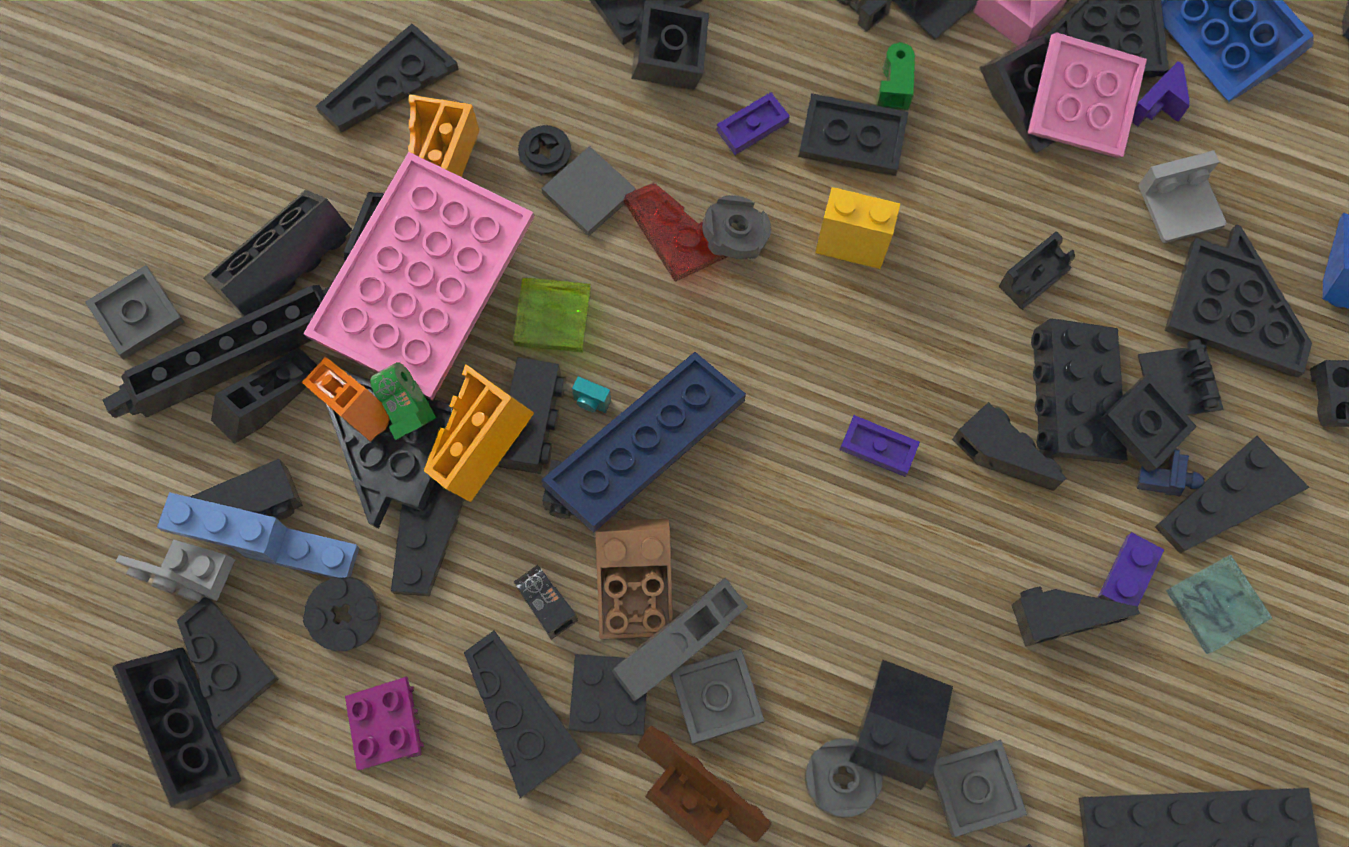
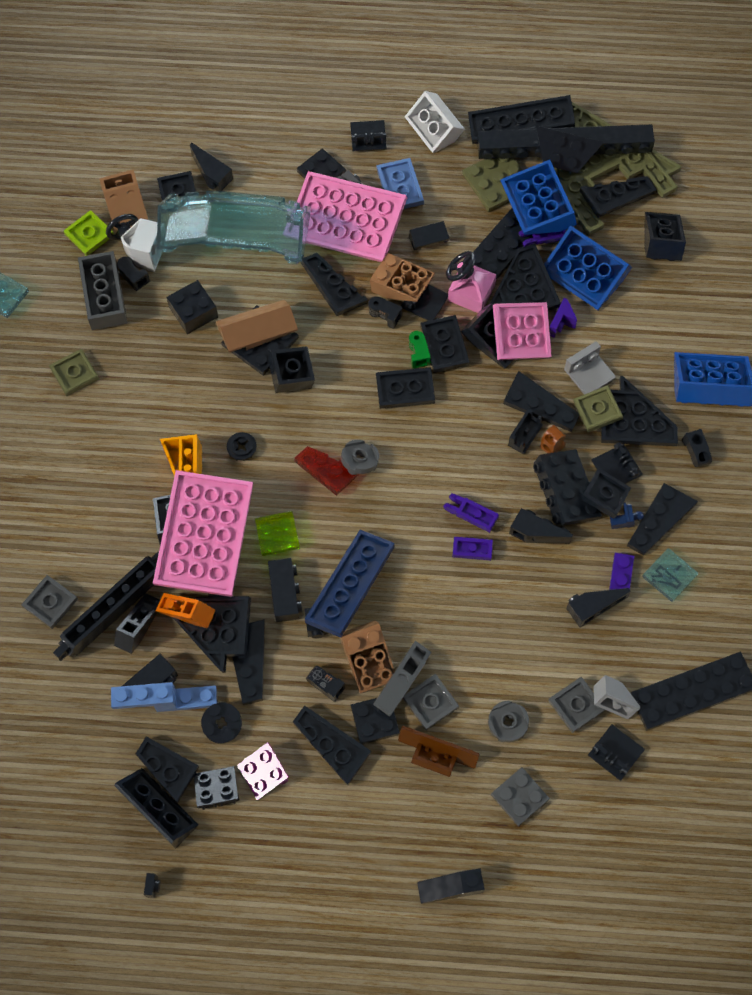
camera: 15 degrees left, 5 degrees down
(185, 567) = (131, 726): light grey bracket -> none
(279, 253) = (117, 546): black slope -> none
(292, 726) = (216, 787): none -> hinge
(388, 77) = (143, 430): black wing -> none
(401, 399) = (217, 600): green leg -> none
(476, 435) = (262, 606): light orange wedge -> none
(588, 191) = (273, 461): dark grey tile -> none
(591, 395) = (312, 569): teal plate -> none
(752, 123) = (349, 398): dark purple plate -> none
(857, 228) = (423, 438): yellow slope -> none
(900, 383) = (472, 512): none -> dark purple hinge
(902, 725) = (529, 685): black slope -> none
(946, 81) = (445, 344): none -> black plate
(1050, 799) = (614, 697): none -> light grey slope
(1062, 207) = (528, 394): none -> black wing
(1084, 300) = (553, 439): none -> dark orange leg
(1179, 269) = (598, 408): none -> olive tile

